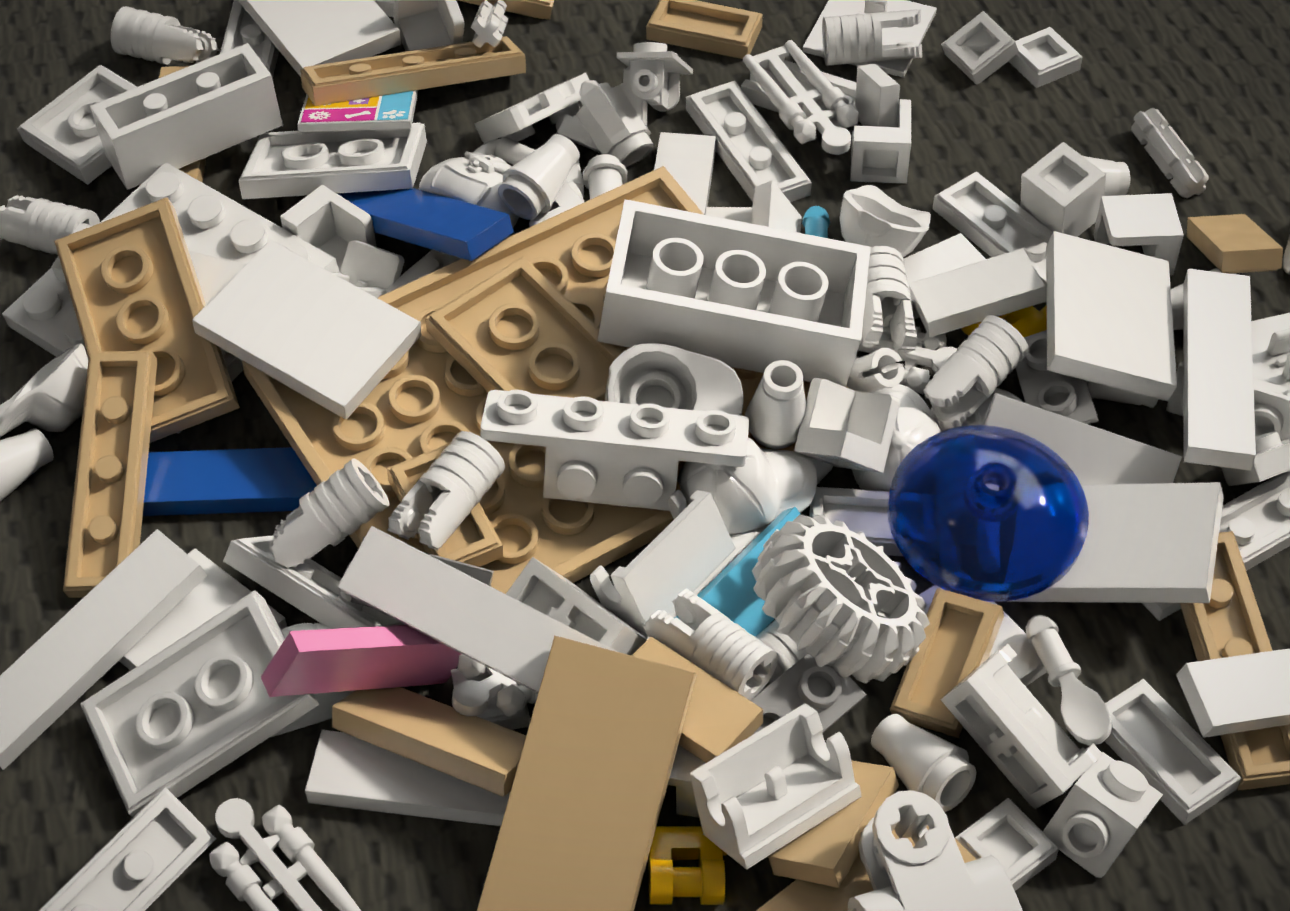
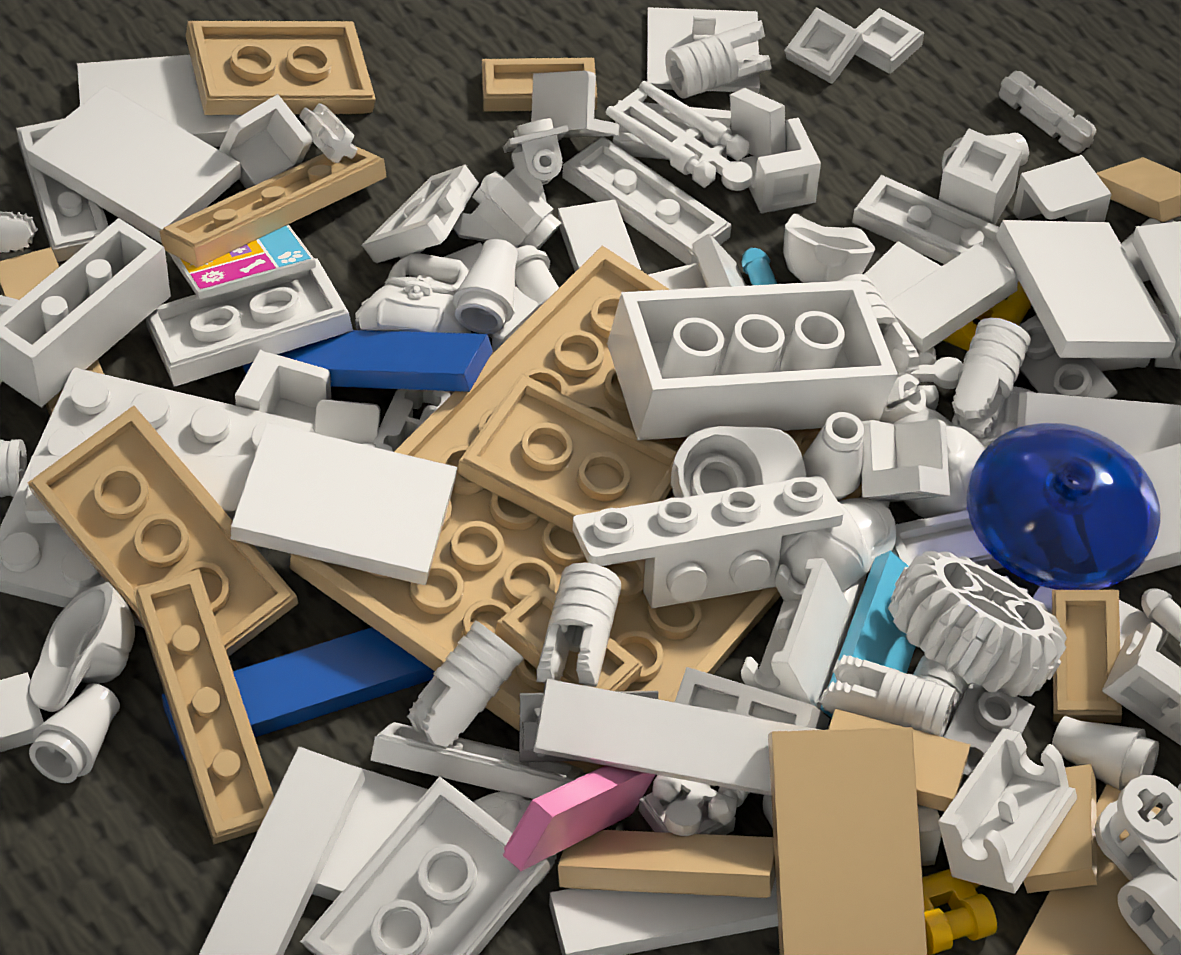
camera: 25 degrees left, 0 degrees up
(704, 44) = (569, 101): none -> white panel

